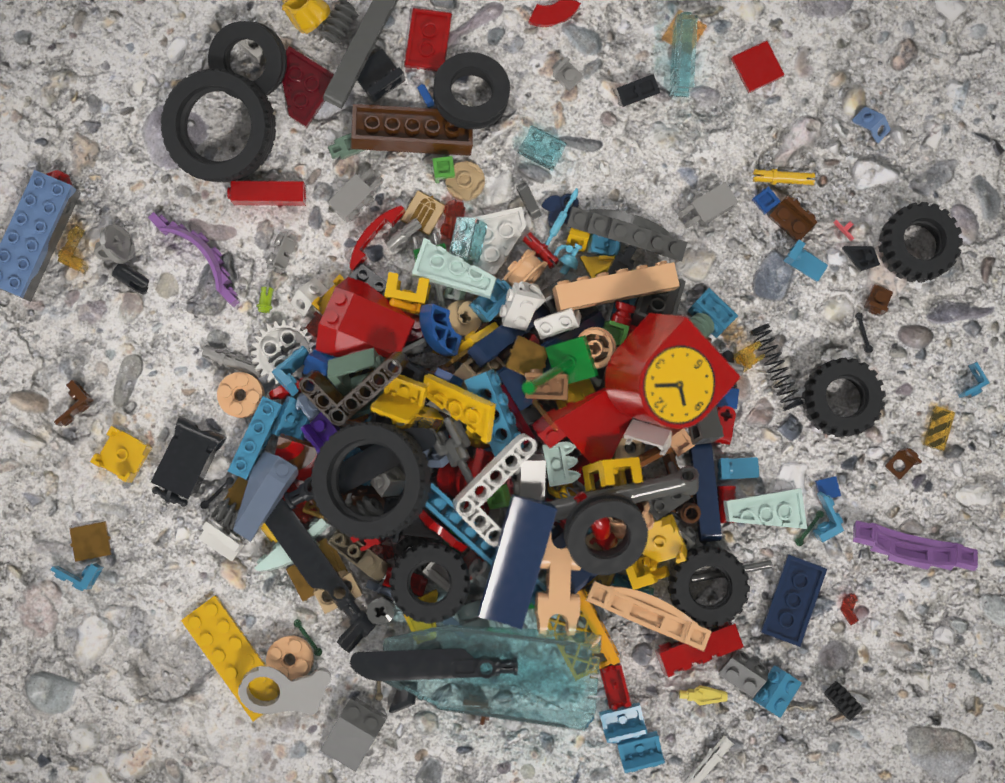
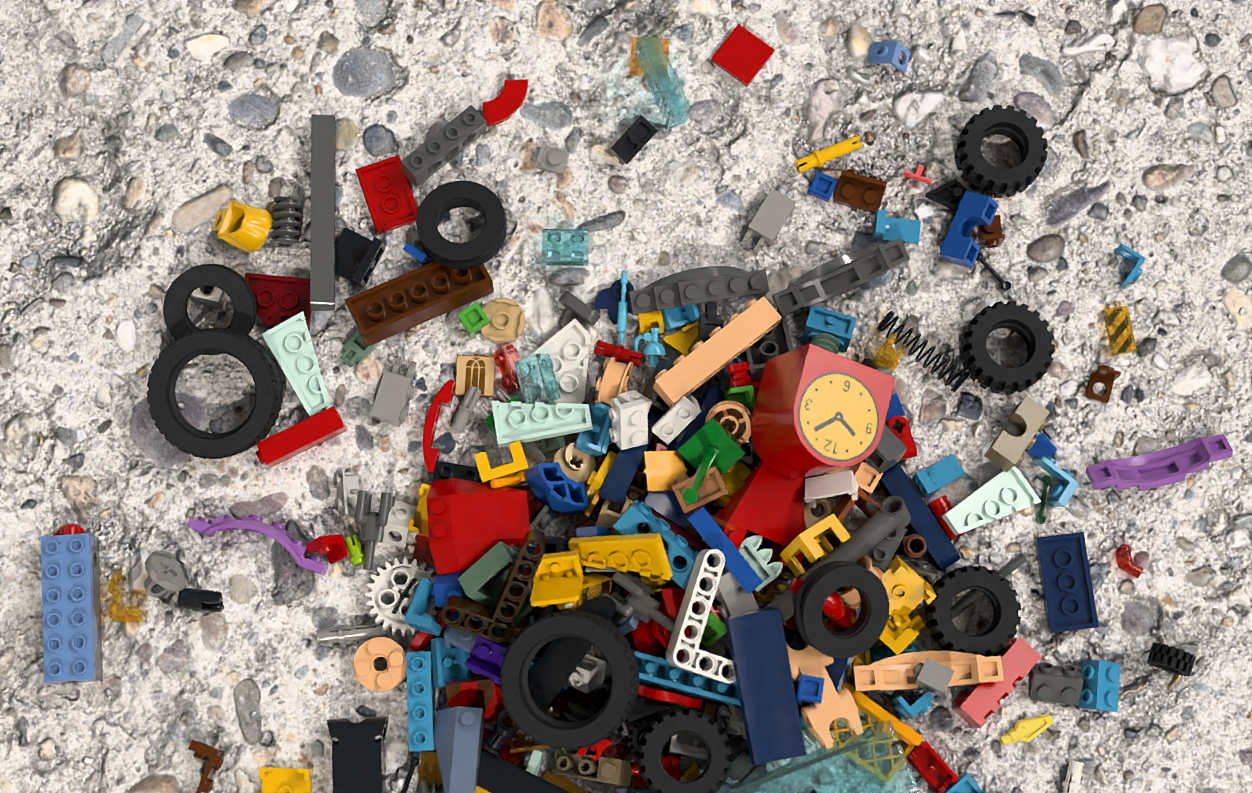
camera: 25 degrees left, 5 degrees down
(248, 286) = (331, 545): none -> red bracket
(287, 285) = (372, 523): none -> dark grey plant
(294, 131) = (295, 354): none -> light aqua wing
(489, 22) = (443, 146): none -> dark grey brick
(543, 451) = (718, 540): none -> blue sticker
(550, 581) = (810, 689): none -> blue tile
(630, 635) = (917, 706): none -> dark azure bracket
(651, 620) = (933, 676): none -> light grey brick
(742, 277) = (840, 276): none -> dark grey piece
(830, 461) = (1028, 419): none -> arch
(873, 278) = (972, 211): none -> blue arch

